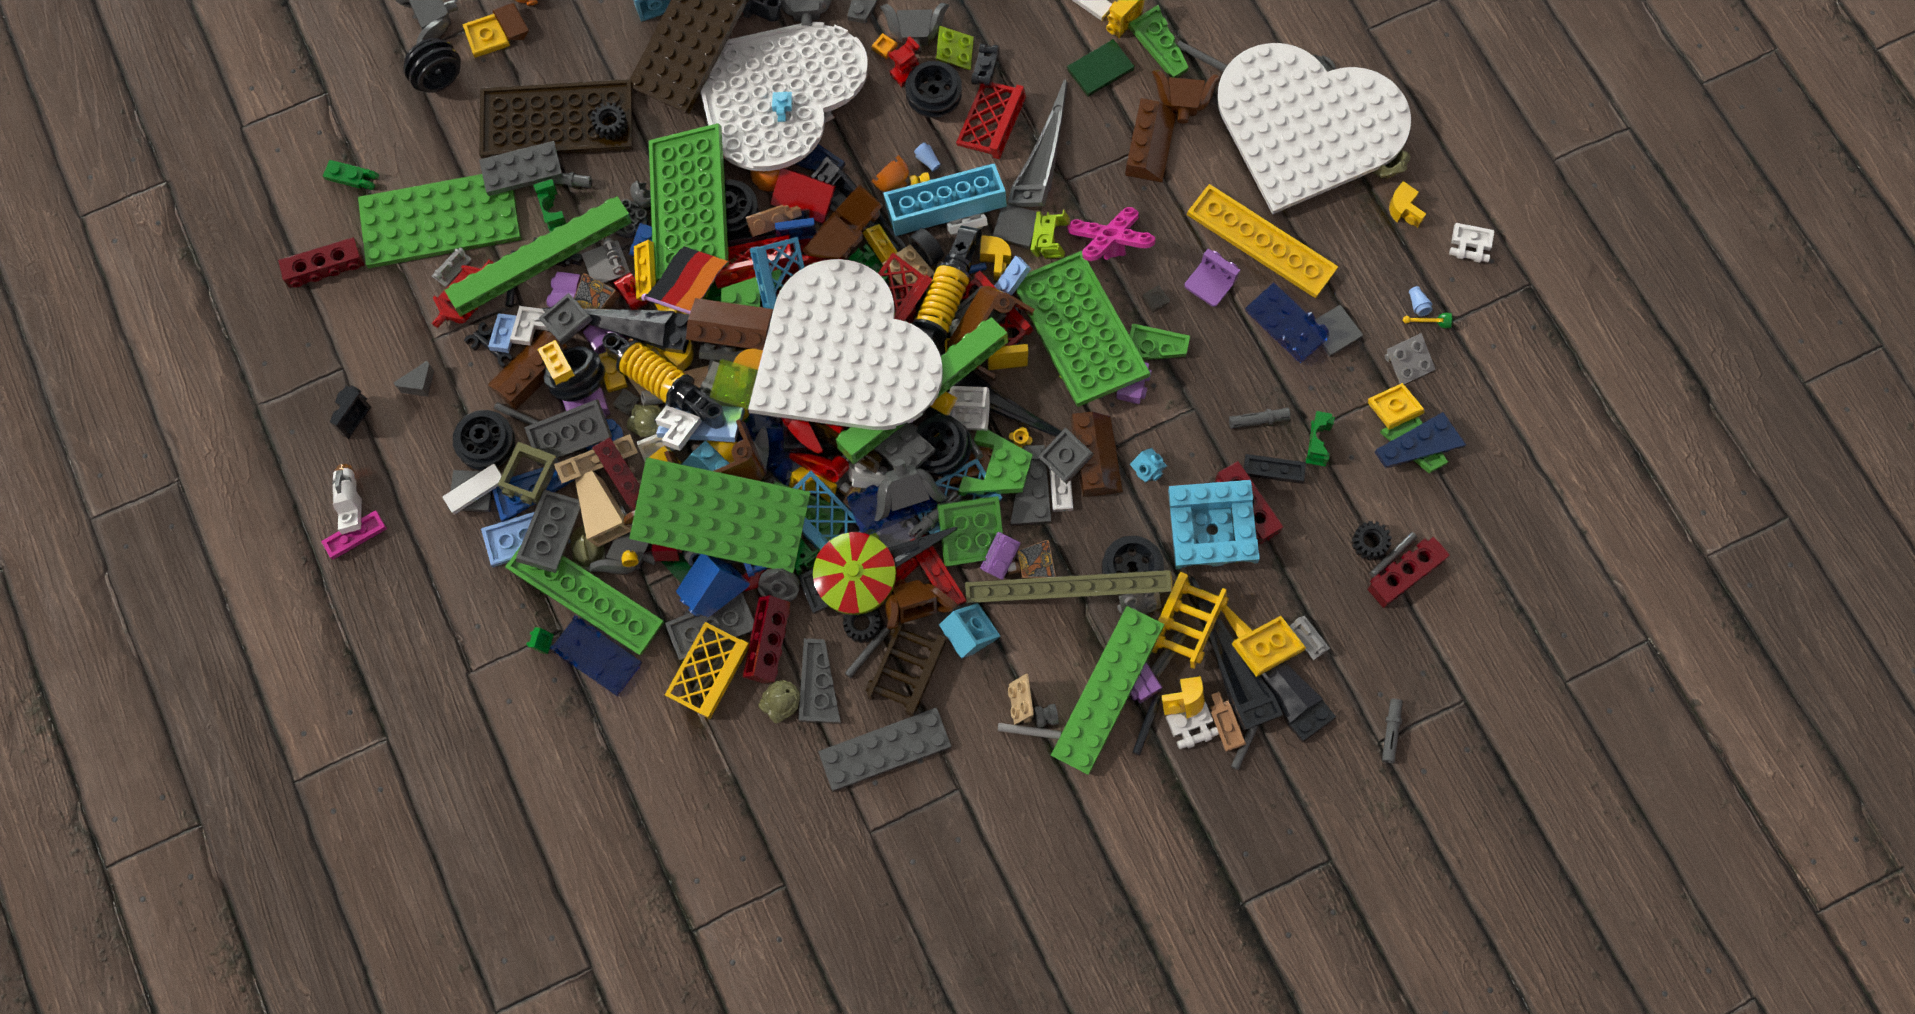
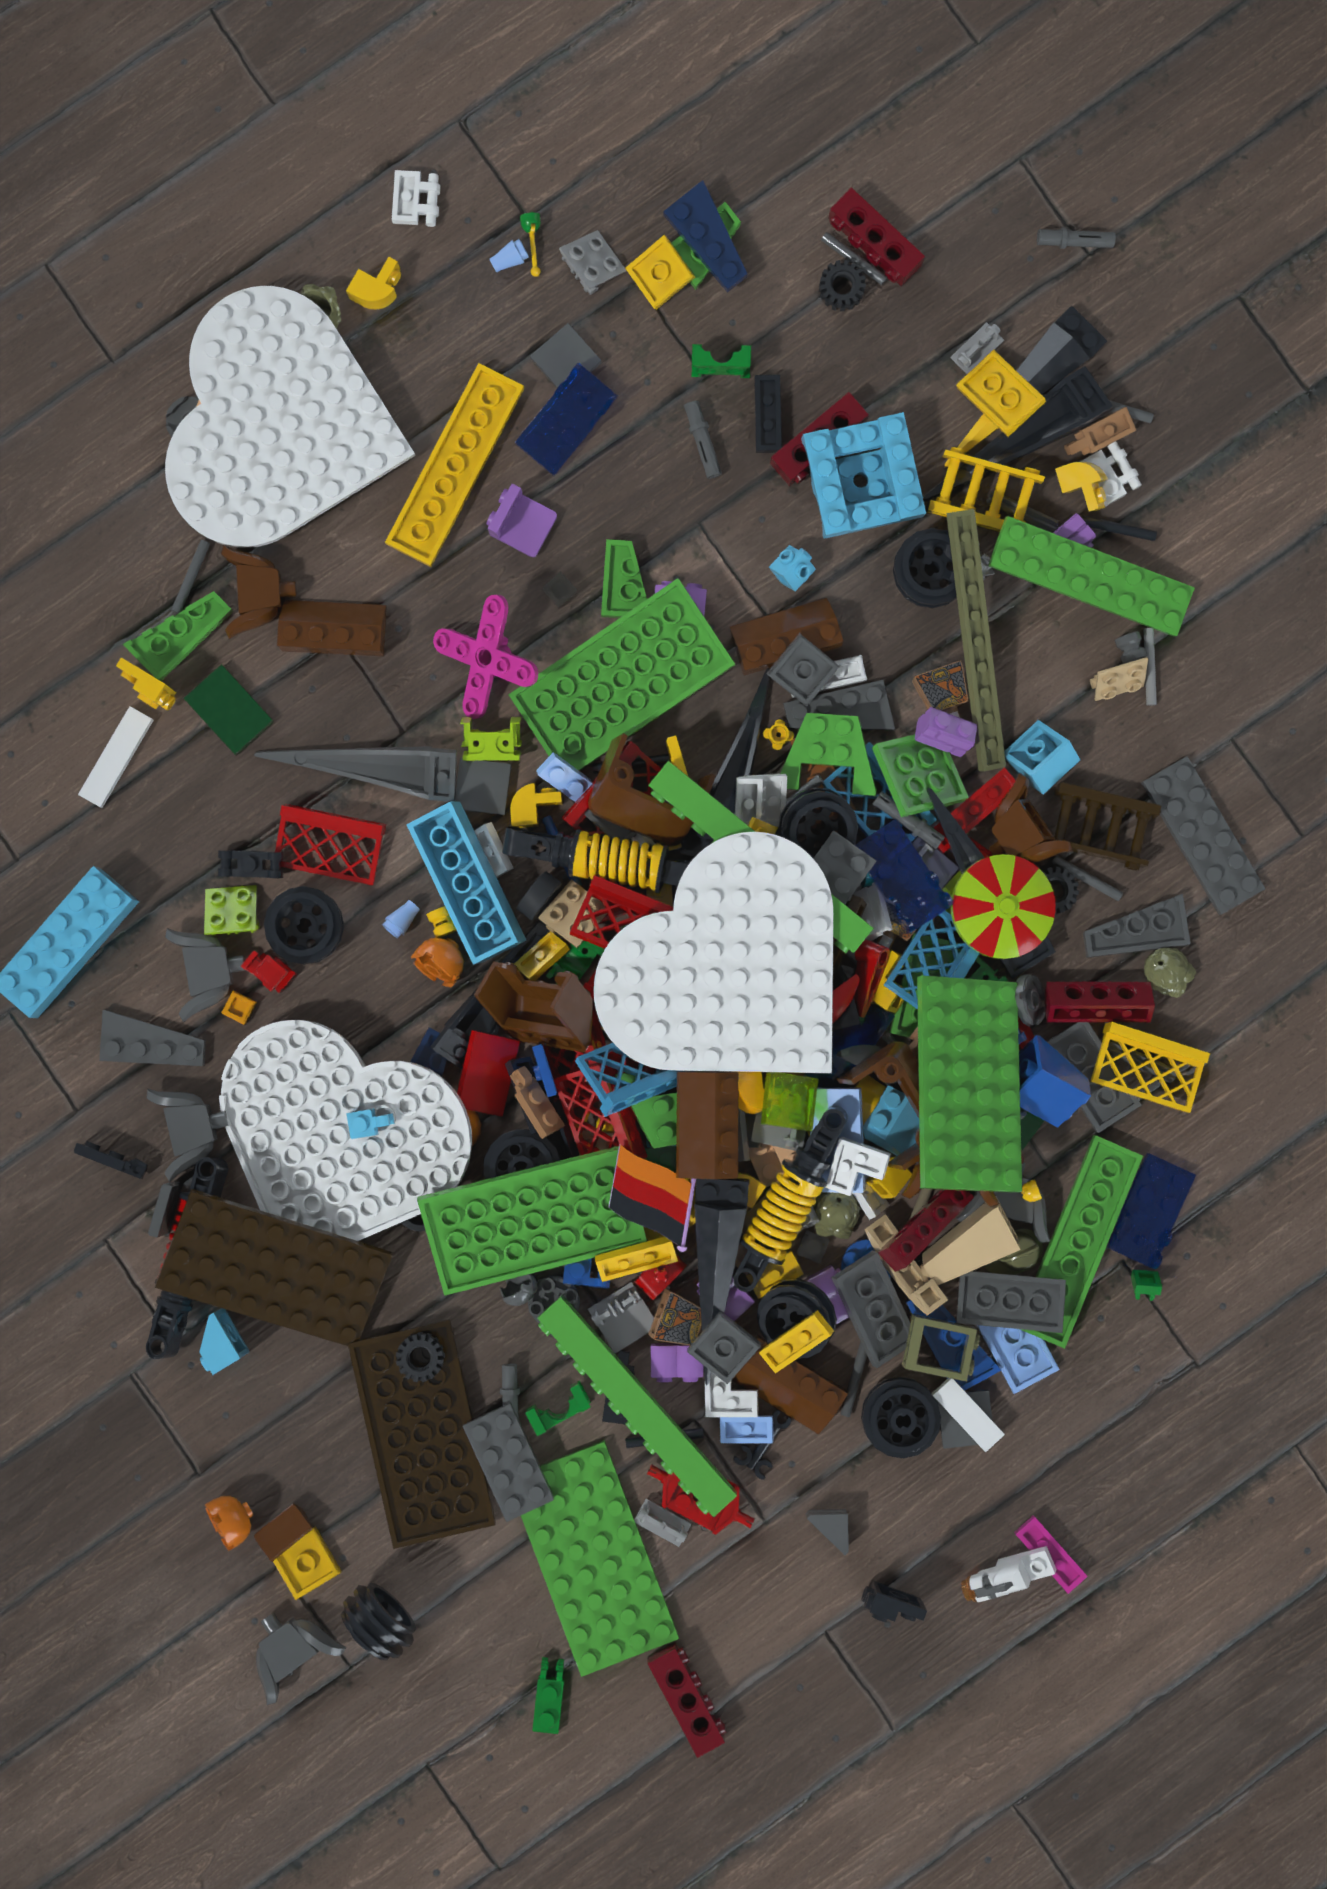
camera: 100 degrees left, 15 degrees up
(904, 488) = (894, 858): dark grey torso -> none

